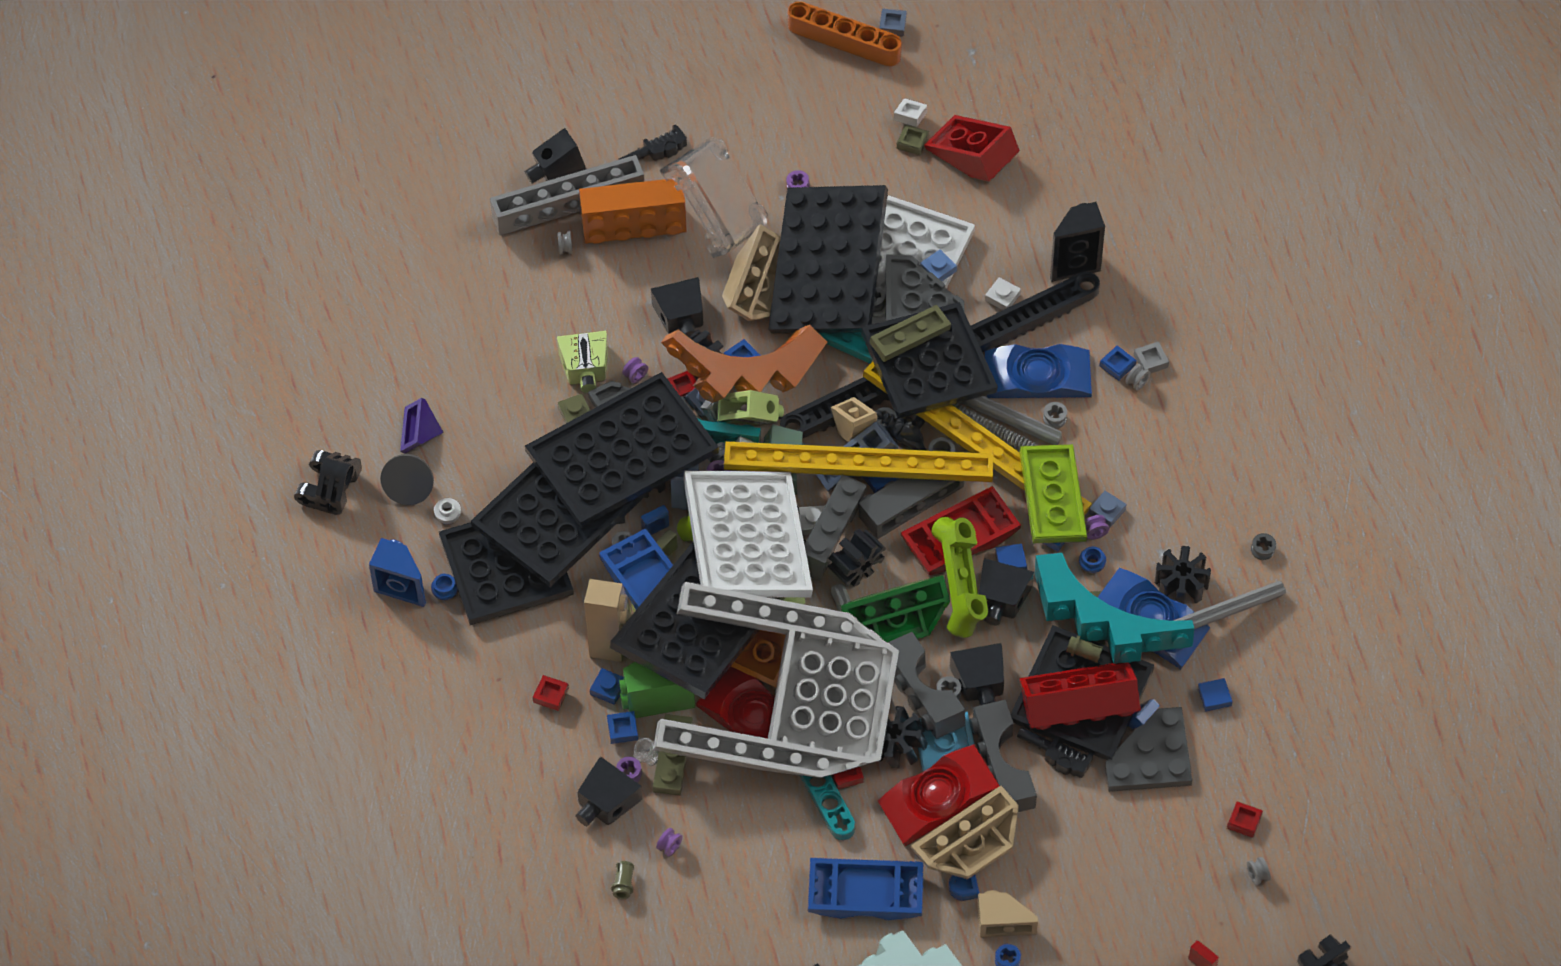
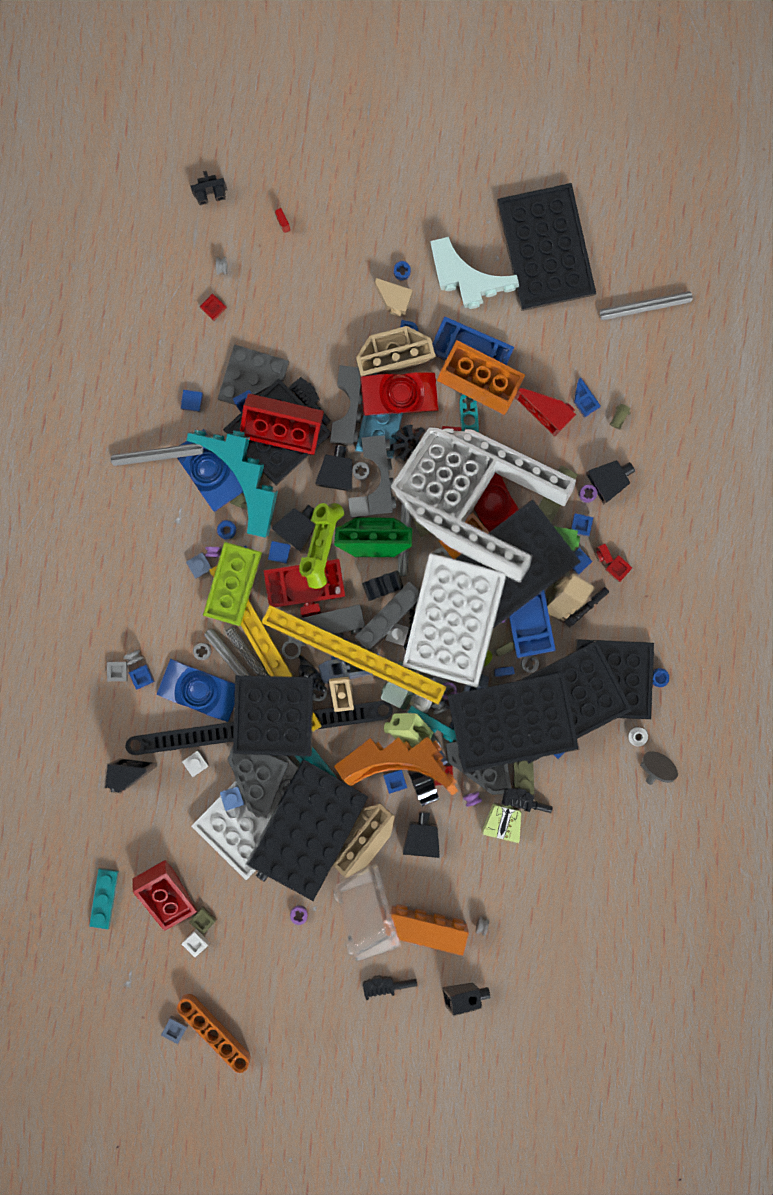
camera: 165 degrees left, 30 degrees up
(334, 478) = (709, 787): black piece -> none
(396, 573) = (691, 694): blue slope -> none
(418, 425) = (634, 811): dark purple slope -> none
(558, 196) = (469, 965): light grey brick -> none
(569, 387) = (523, 799): none -> black piece
(576, 633) = (578, 614): none -> black piece
(577, 701) = (603, 554): none -> red plate
(641, 748) = (576, 502): clear plate -> none
(669, 842) = (582, 430): medium lavender bush -> none
(680, 886) = (585, 399): none -> blue tile
(730, 840) = (547, 410): none -> red slope
(837, 844) = (480, 377): none -> orange slope
(910, 333) = (279, 735): olive plate -> none
(934, 647) = (358, 507): none -> light grey tile
(938, 503) = (310, 609): none -> red plate
(1044, 122) = (104, 898): none -> teal plate
(1084, 649) = (266, 456): olive pin -> none
(1183, 575) = (179, 488): black gear -> none
(1269, 542) = (114, 492): dark grey bush -> none

